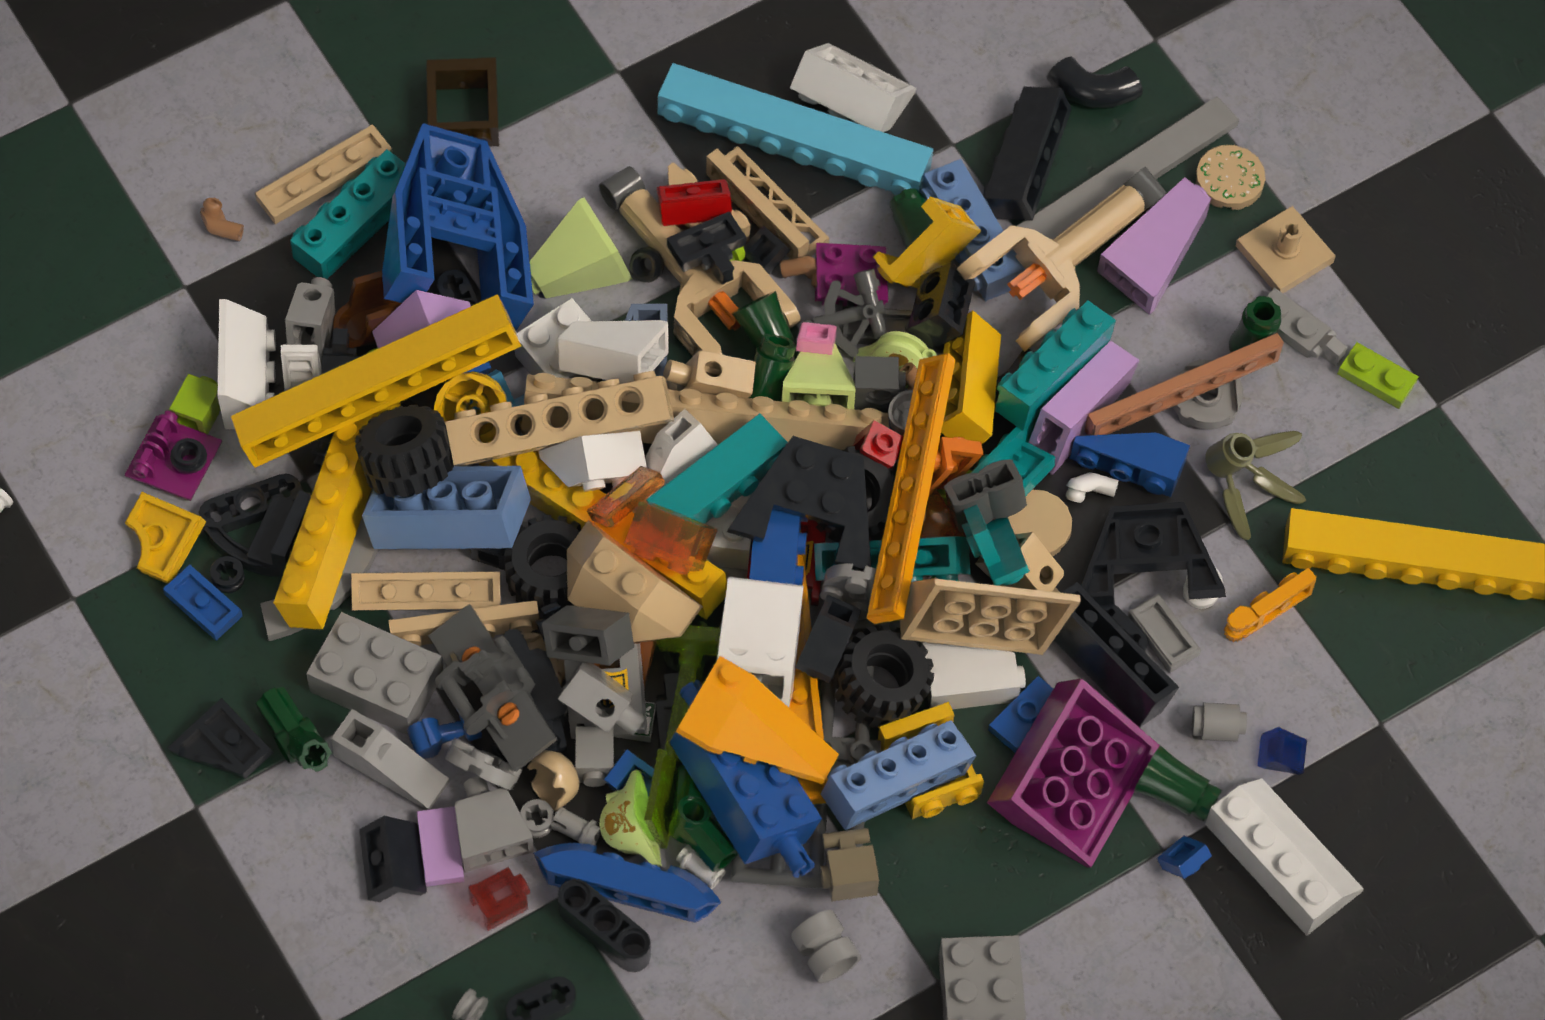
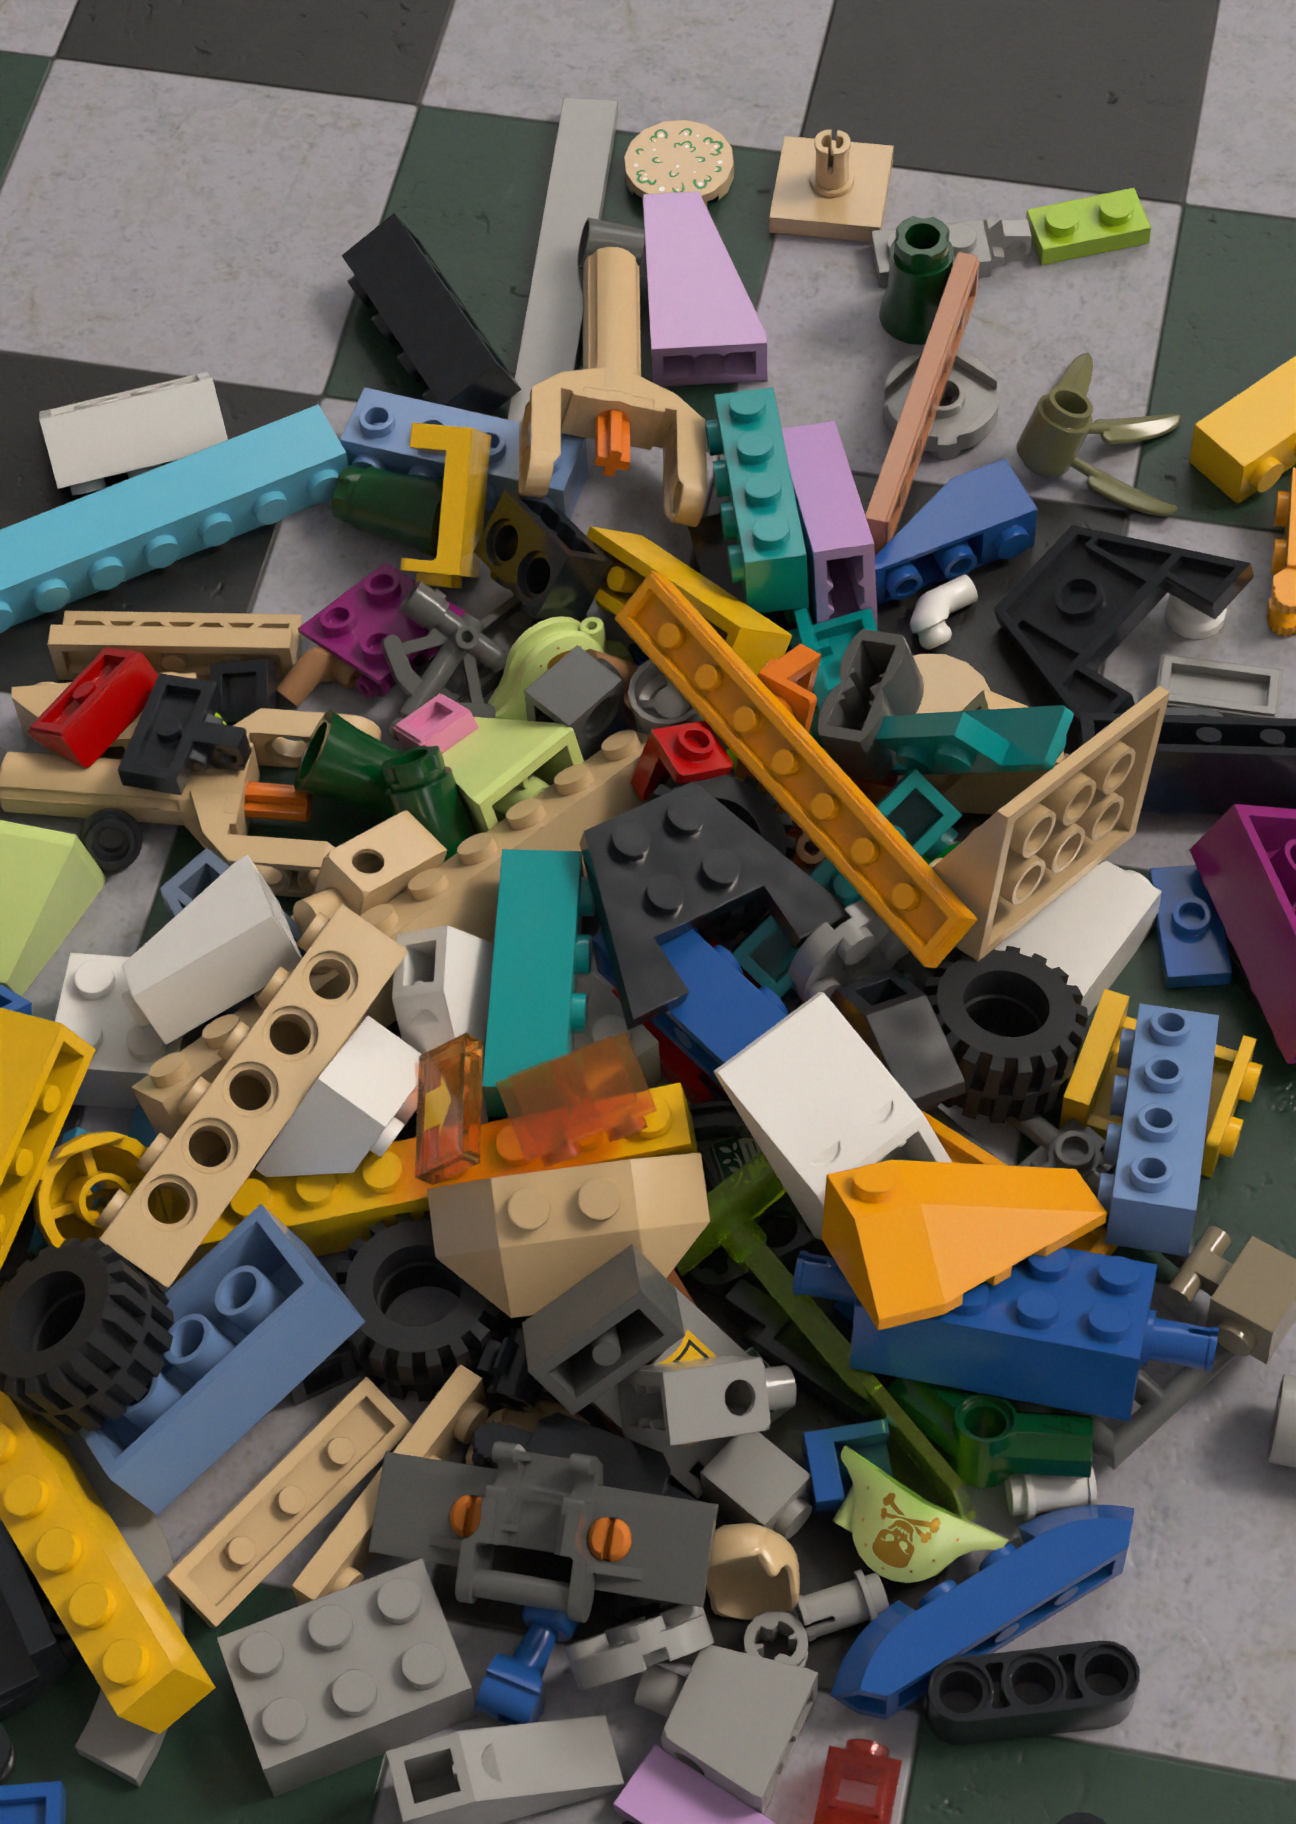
camera: 40 degrees left, 5 degrees down
(1095, 89) = (422, 197): black cylinder -> none

